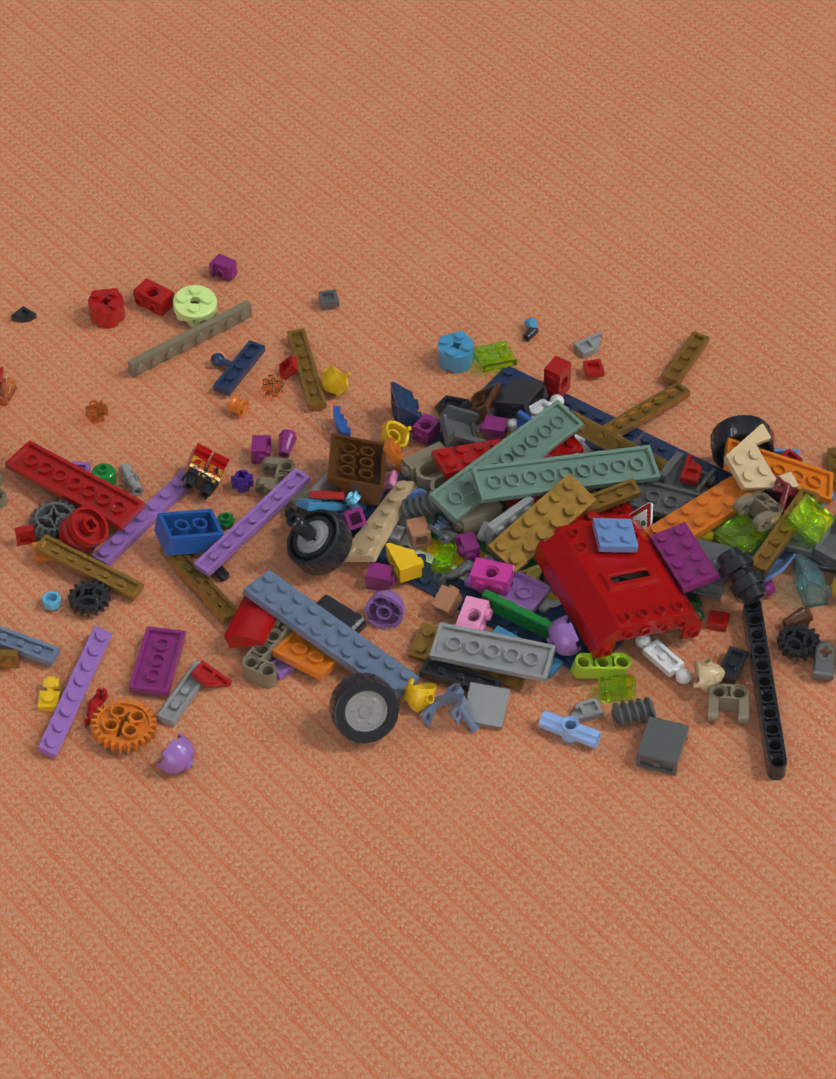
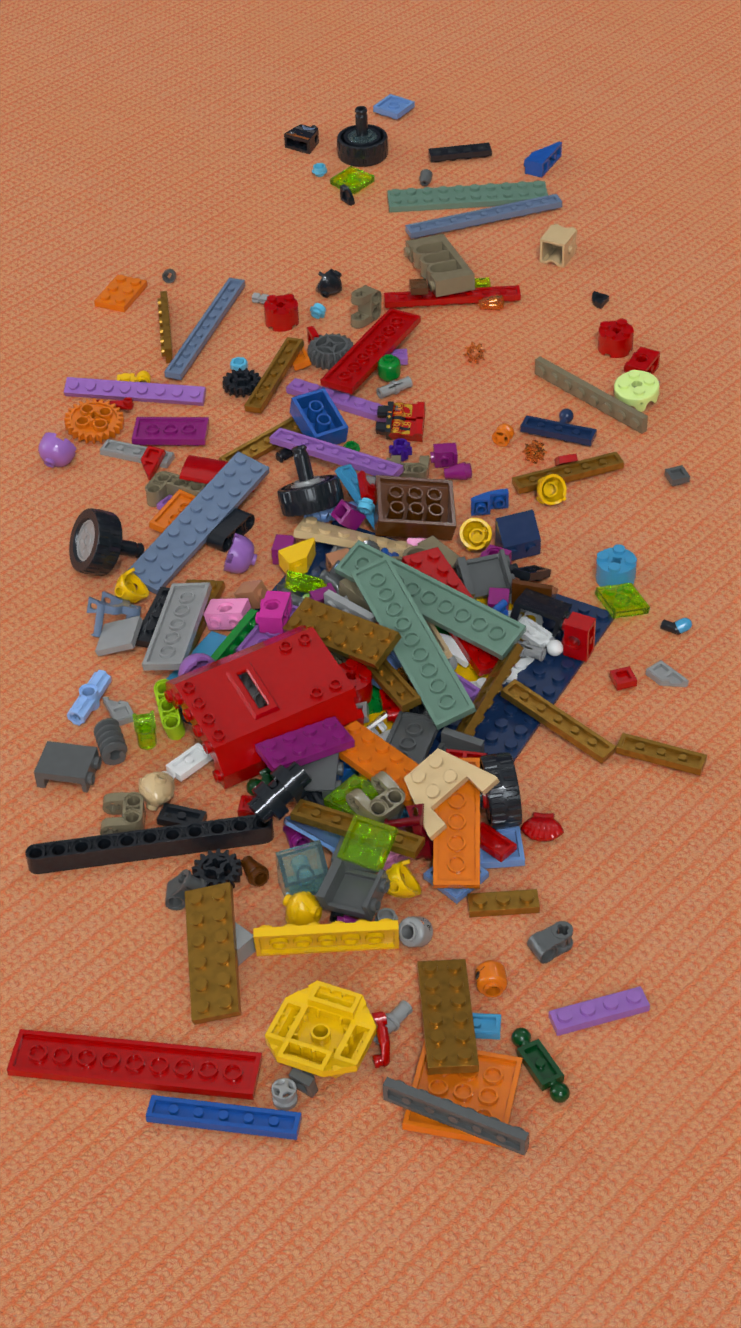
camera: 85 degrees right, 5 degrees down
(84, 529) = (310, 349): red wheel -> none
(223, 267) = (699, 401): magenta brick -> none
(393, 451) = (448, 532): orange plate -> none
(614, 535) = (306, 670): medium blue plate -> none

